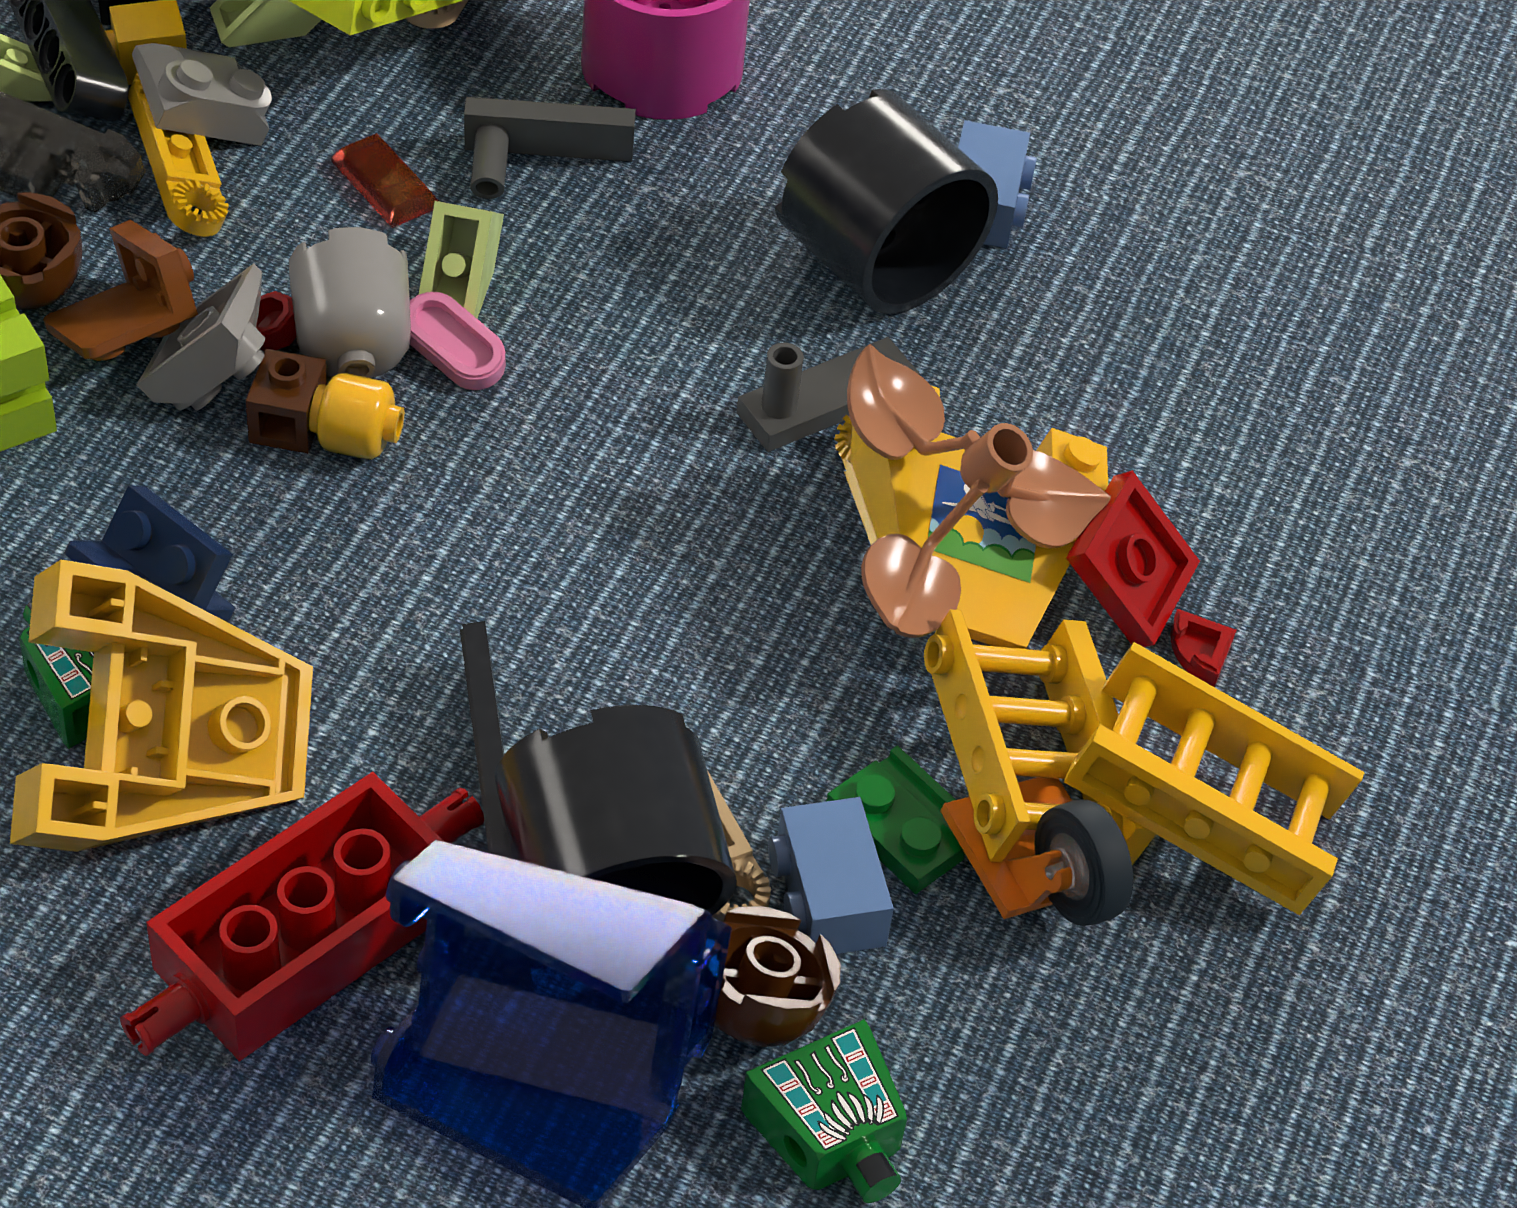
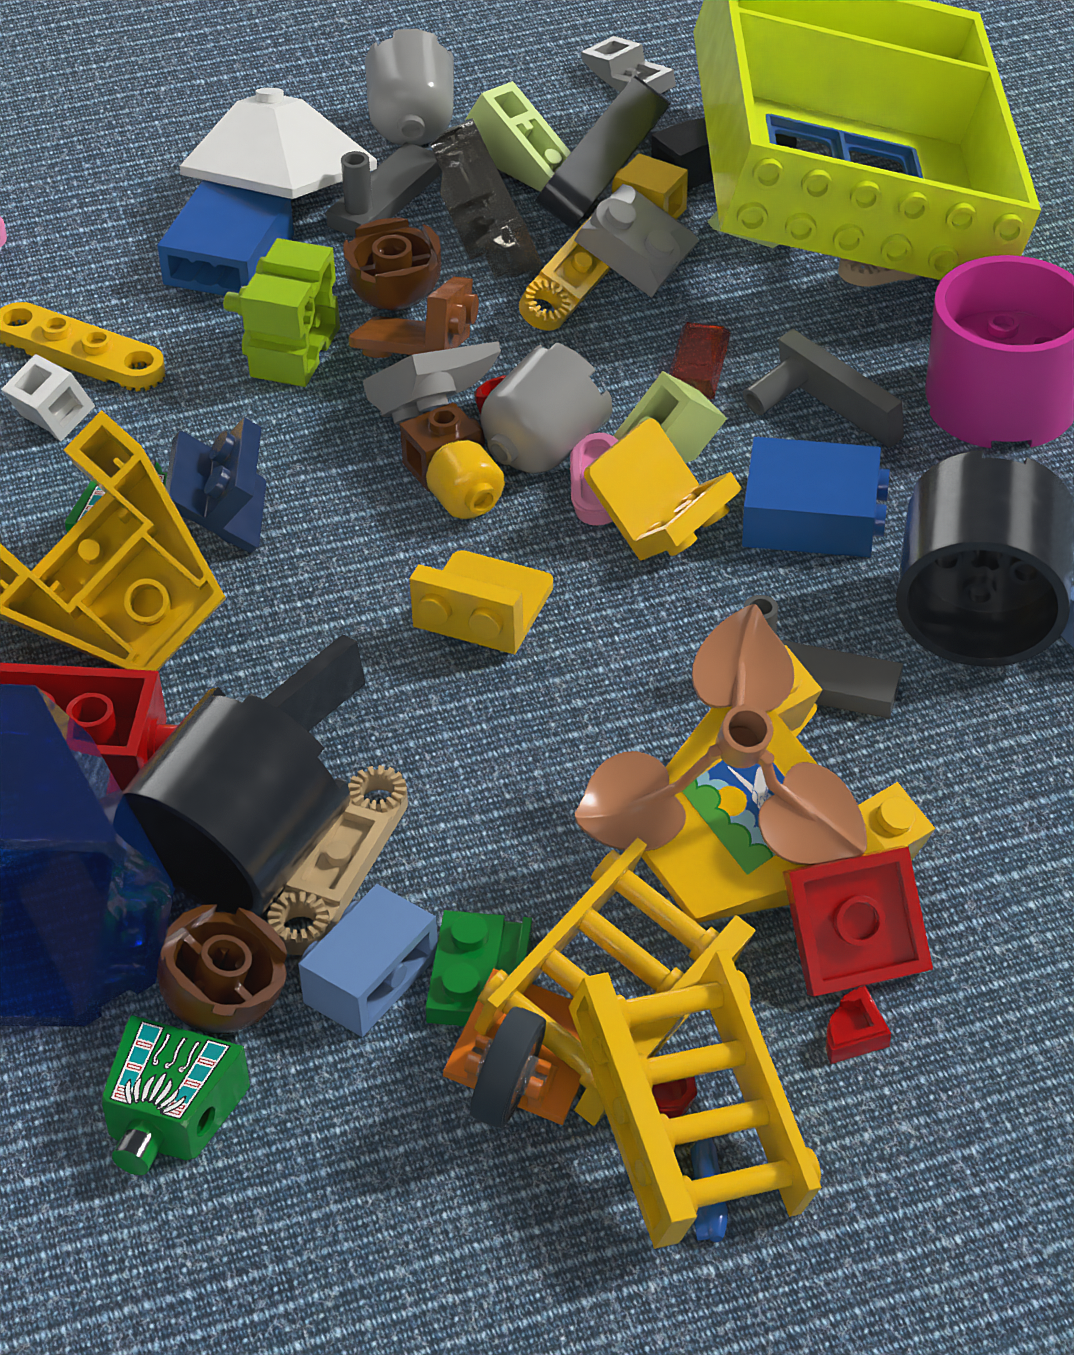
camera: 55 degrees right, 5 degrees down
(508, 513) = (479, 600): none -> yellow bracket
(554, 331) = (655, 493): none -> yellow bracket
(649, 241) = (814, 497): none -> blue brick

